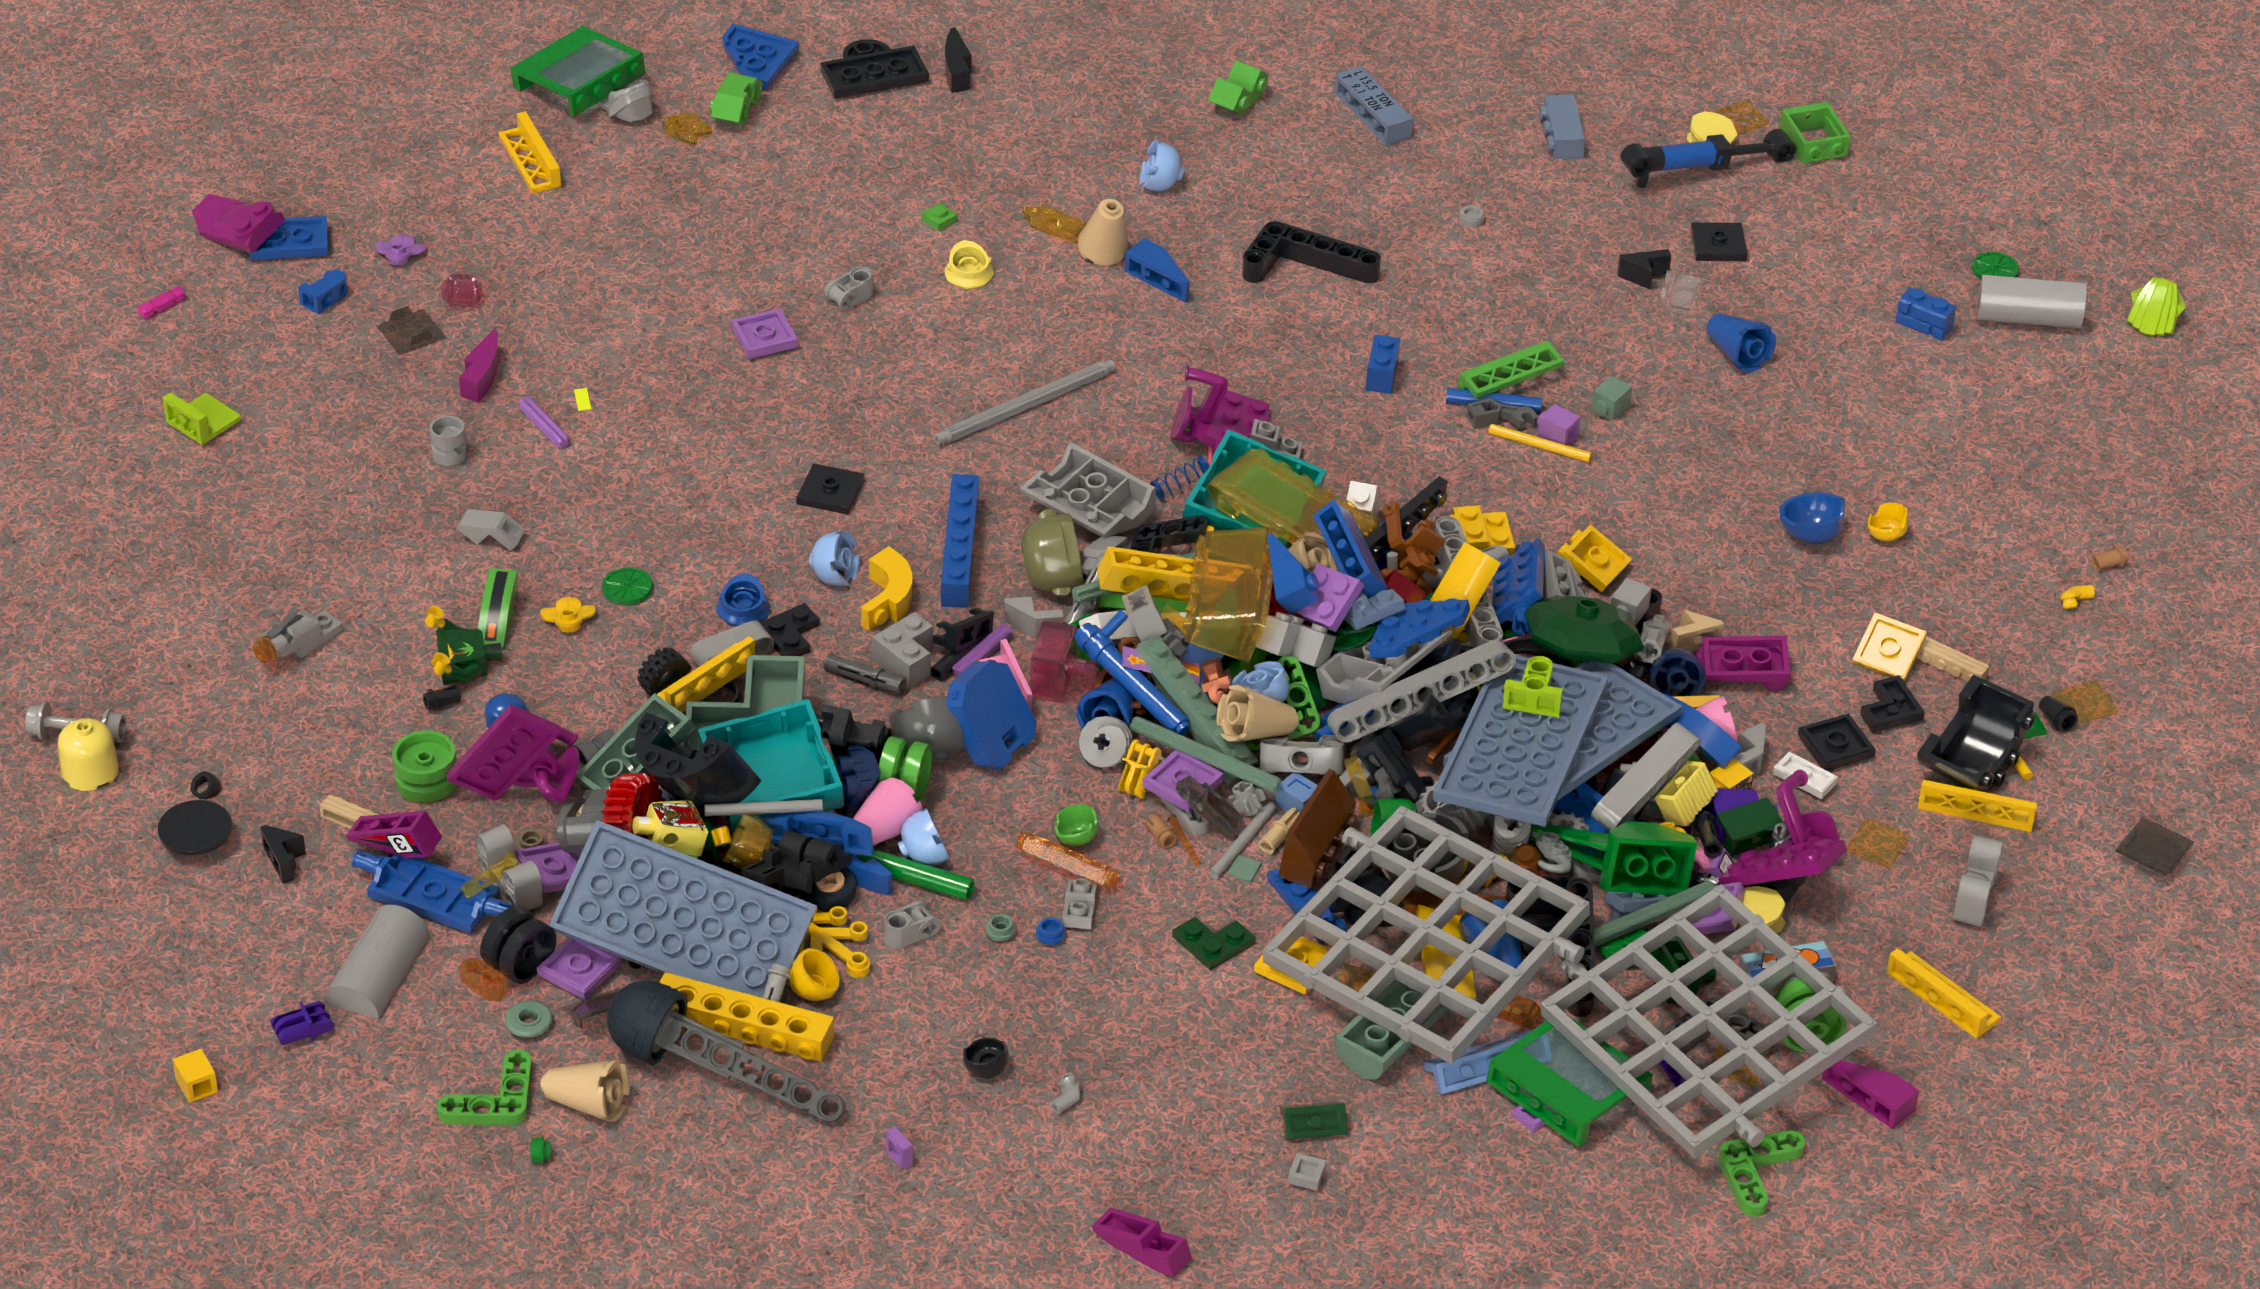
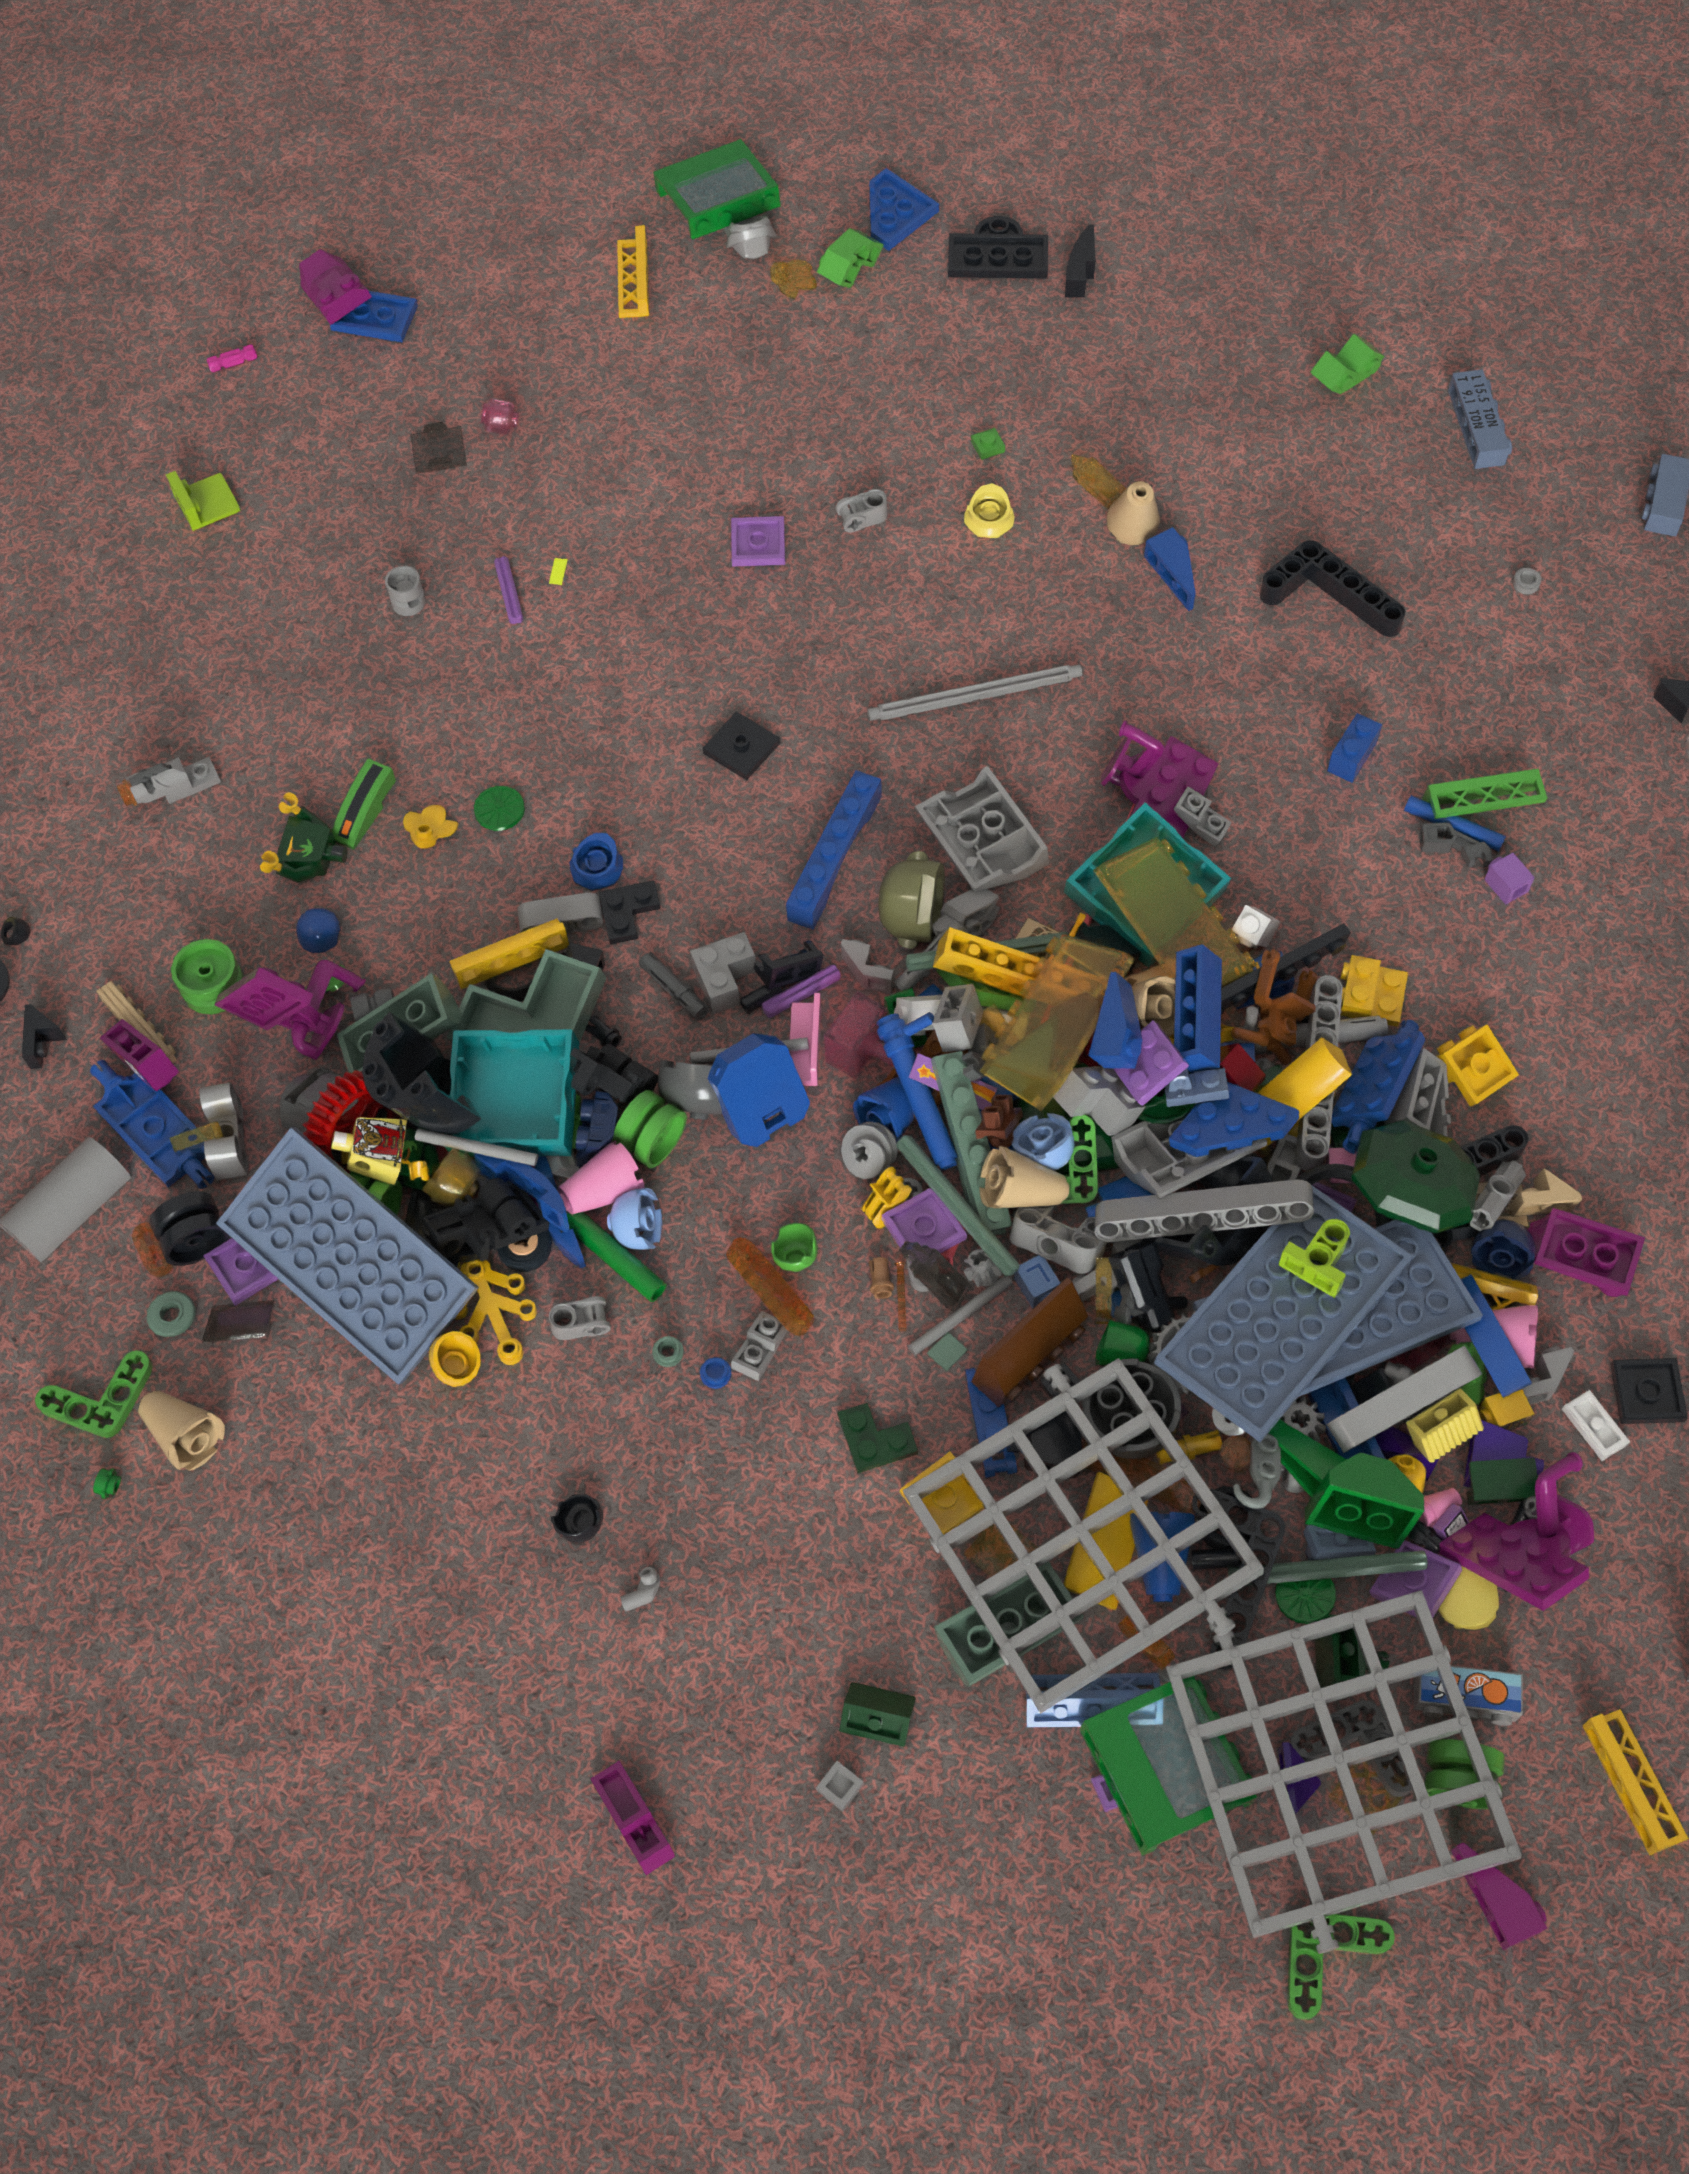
camera: 25 degrees right, 20 degrees up
(323, 292) = (377, 384): blue leg -> none
(400, 249) = (467, 352): medium lavender plate -> none
(441, 697) = (267, 892): black pin -> none
(480, 368) = (477, 511): magenta slope -> none
(480, 523) = (406, 704): light grey slope -> none
(530, 838) = (268, 1089): dark tan plate -> none
(553, 865) = (260, 1131): medium lavender plate -> none
(651, 1019) = (263, 1371): piece -> none
(663, 661) = (475, 931): black tyre -> none
(756, 1019) = (314, 1331): yellow brick -> none
(776, 982) = (408, 1359): light grey pin -> none
(834, 553) = (706, 833): light blue cylinder -> none
(894, 575) = (747, 896): yellow arch -> none
(899, 1148) = (443, 1606): medium lavender tile -> none
(1156, 535) = (1023, 905): black beam -> none
(1161, 167) = (1228, 443): light blue cylinder -> none
(1202, 465) = (1059, 838): blue piece -> none
(1278, 831) = (1002, 1317): tan axle -> none
(1540, 443) = (1482, 891): yellow bar -> none
(1611, 398) = (1580, 857): sand green brick -> none
(1633, 598) = (1487, 1145): light grey brick -> none
(1705, 825) = (1452, 1478): black pin -> none
(1877, 843) = (1642, 1541): clear yellow piece -> none

